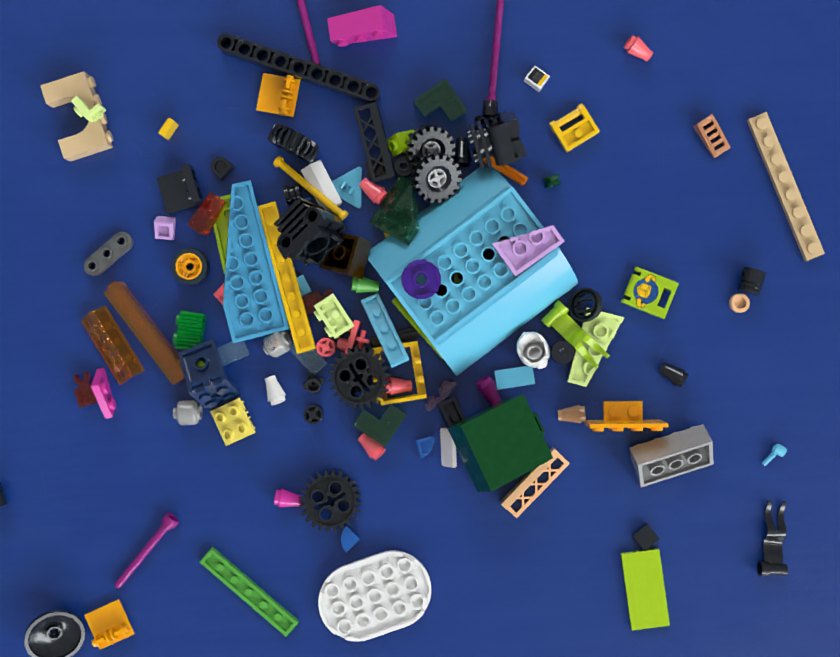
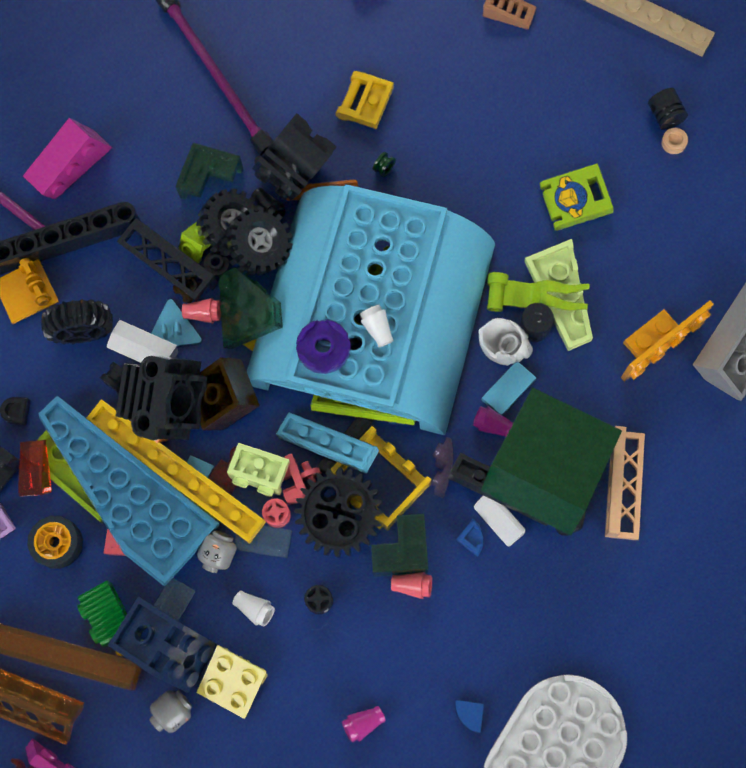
camera: 30 degrees left, 15 degrees down
(279, 162) = (125, 356): yellow bar -> none
(309, 386) = (288, 572): black plate -> none
(337, 517) = (392, 673): black gear -> none
(364, 285) = (267, 414): bright green cone -> none
(398, 386) = (391, 493): coral cone -> none
(461, 291) = (377, 324): none -> white cone
(528, 248) = (412, 230): lavender wing -> none
(536, 78) = (288, 83): slope -> none
(572, 414) = (604, 377): medium nougat cone -> none
(576, 299) = (507, 256): black piece -> none
(674, 374) = (671, 257): black cone -> none

